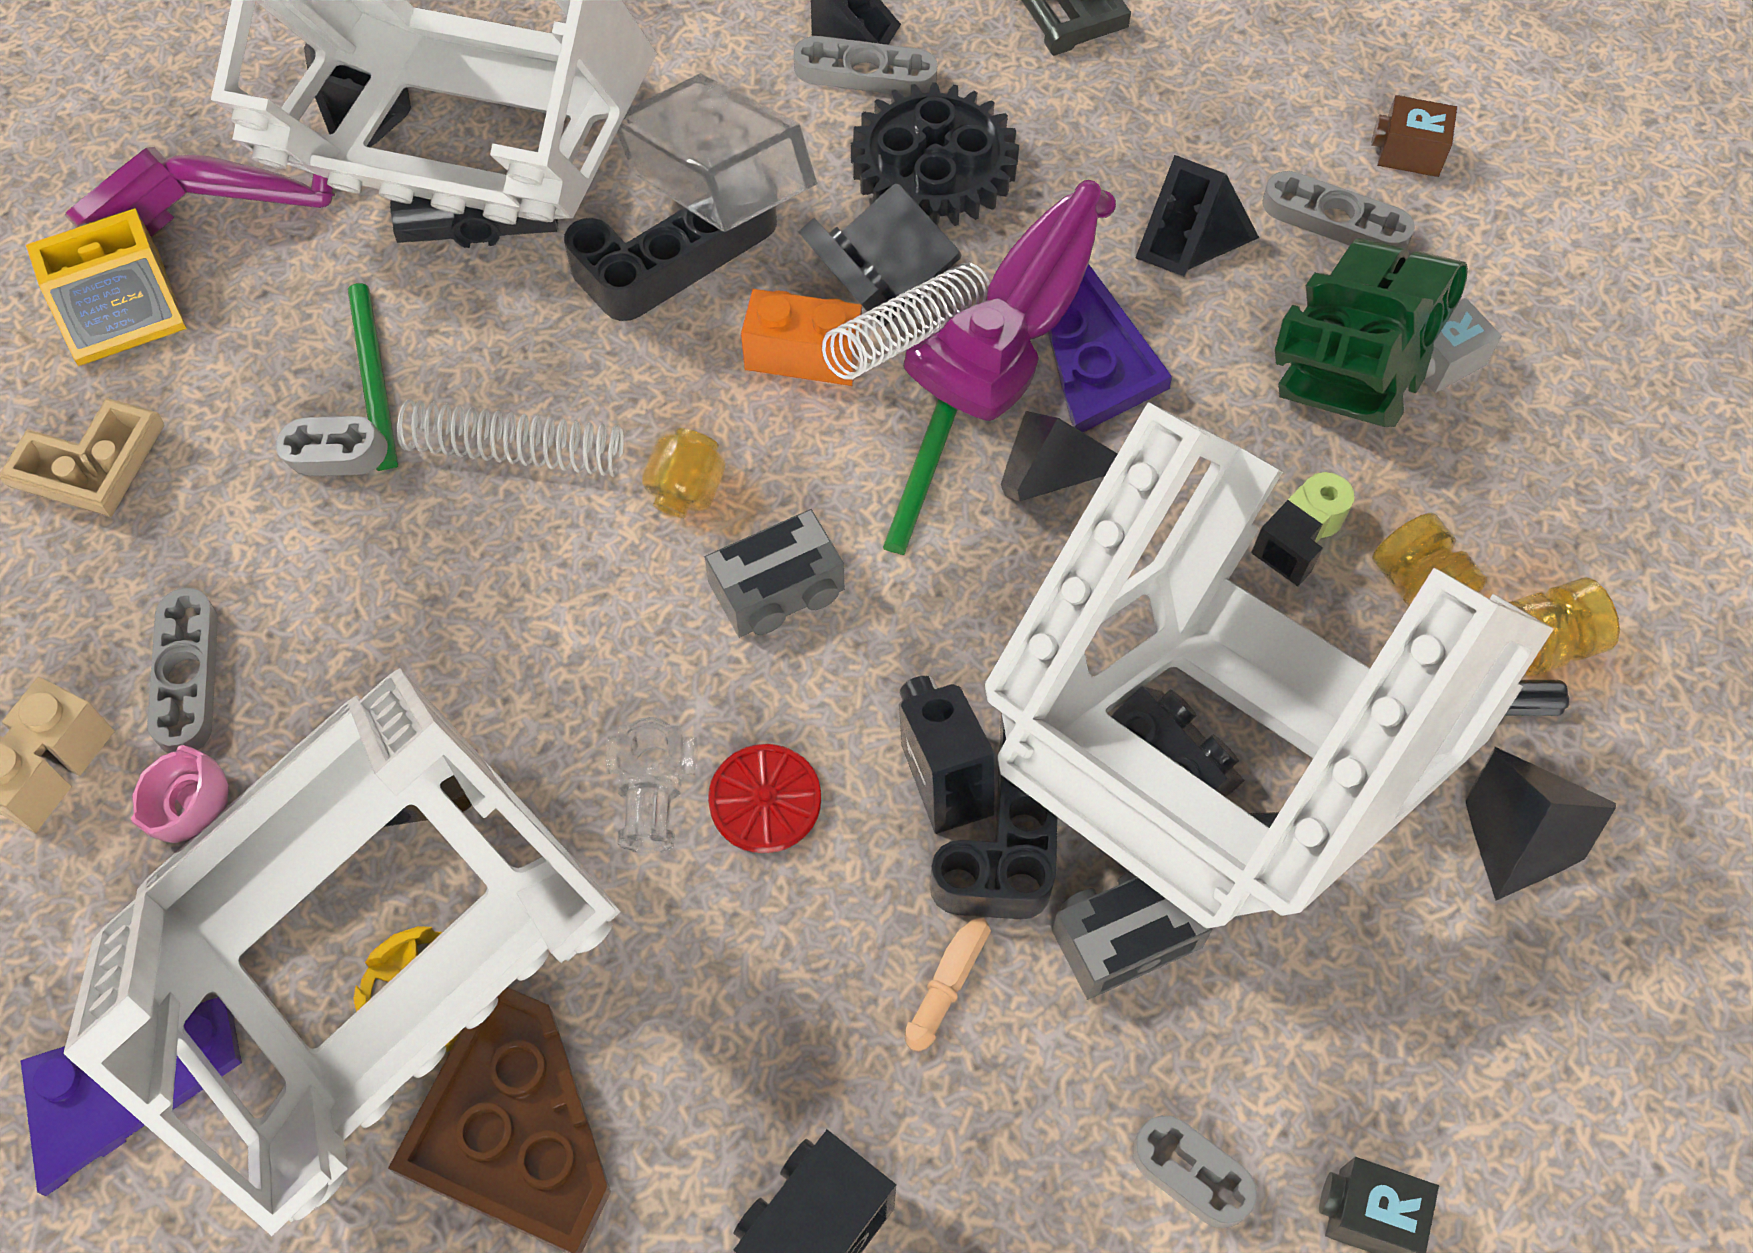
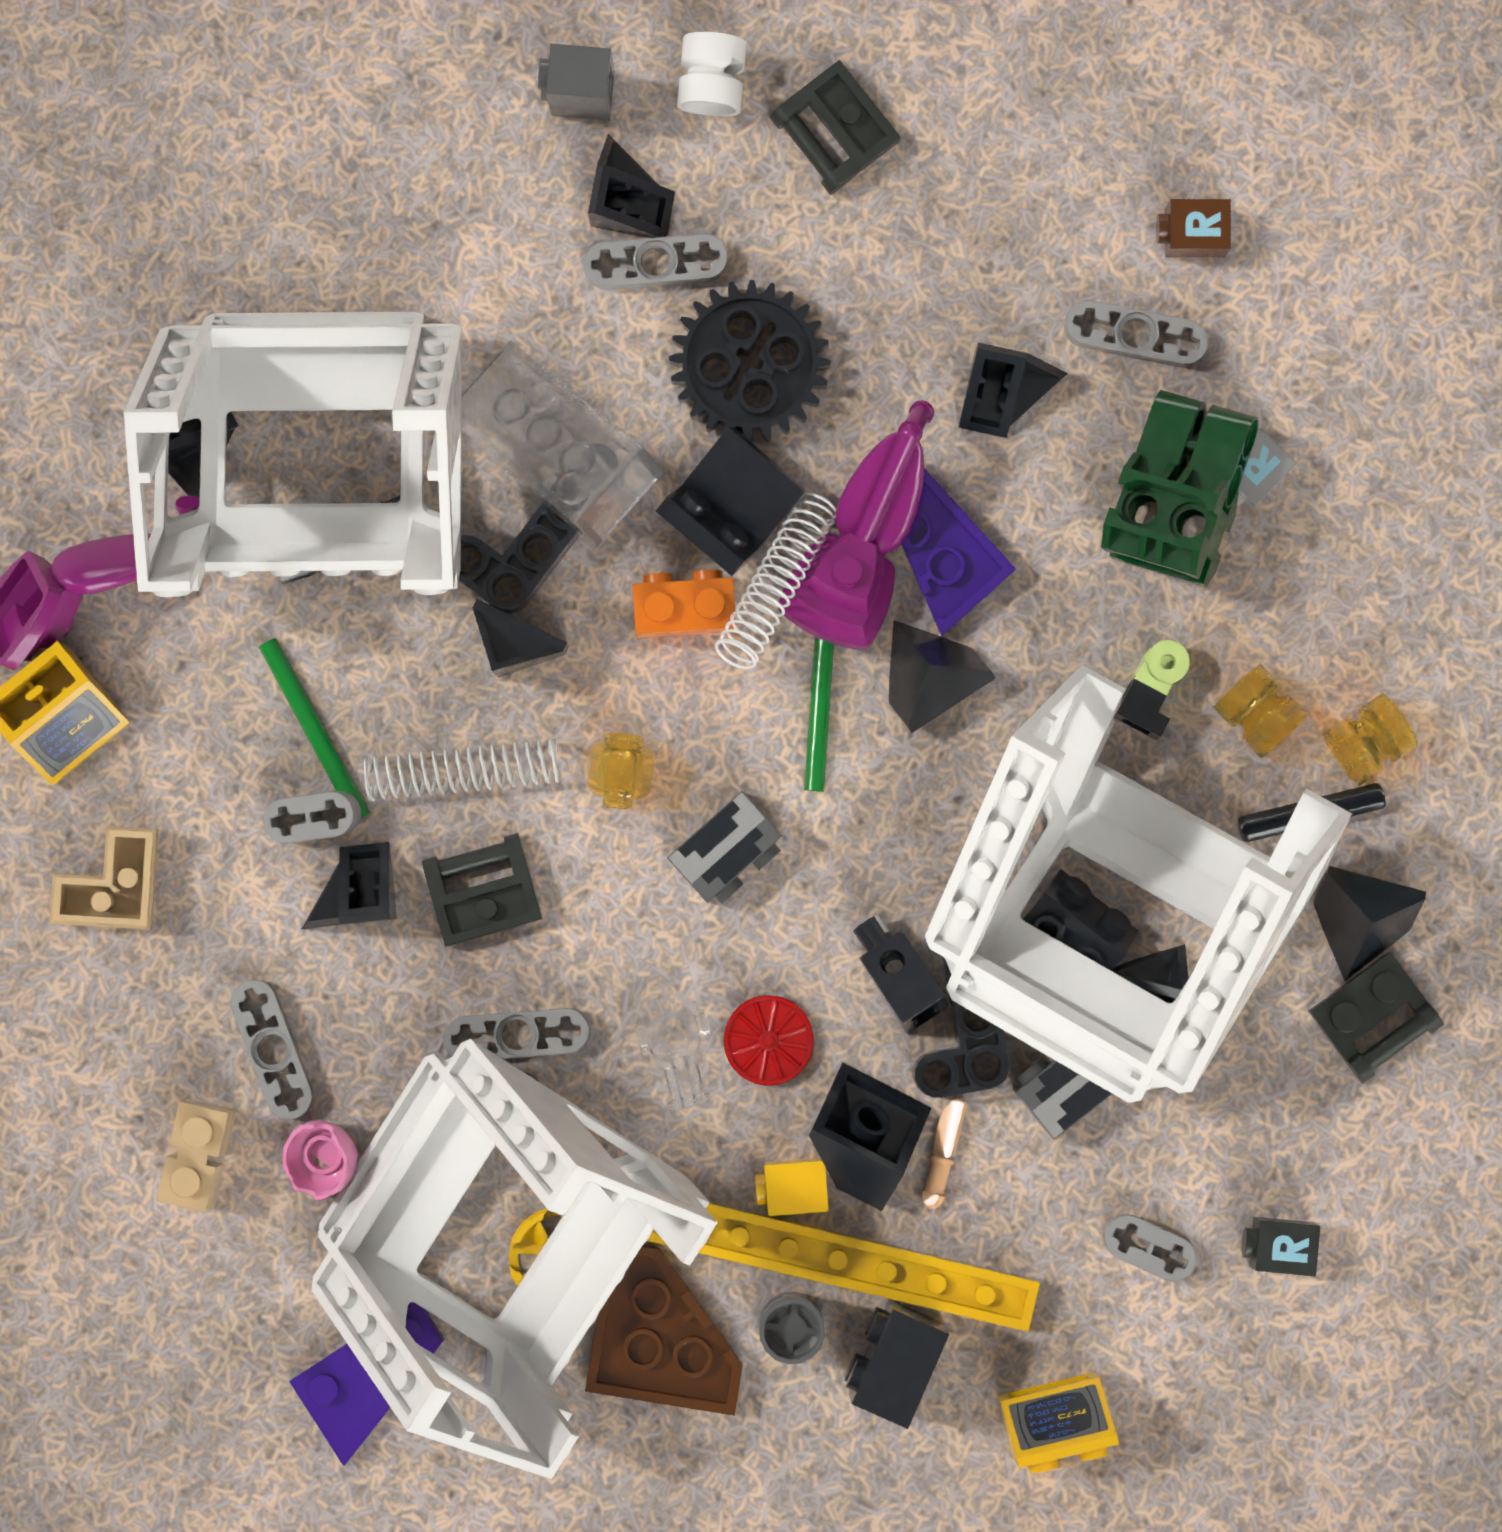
camera: 15 degrees left, 25 degrees up
(349, 533) = (358, 889): none -> black slope
(490, 575) = (487, 906): none -> pearl dark grey plate
(516, 713) = (553, 1019): none -> light grey beam
(614, 333) = (512, 642): none -> black slope
(686, 1147) = (791, 1328): none -> dark grey wheel
(744, 970) = (793, 1187): none -> yellow brick
(787, 1087) = (869, 1267): none -> yellow plate
(851, 932) = (867, 1135): none -> black slope
(1527, 927) = (1367, 1002): none -> pearl dark grey plate

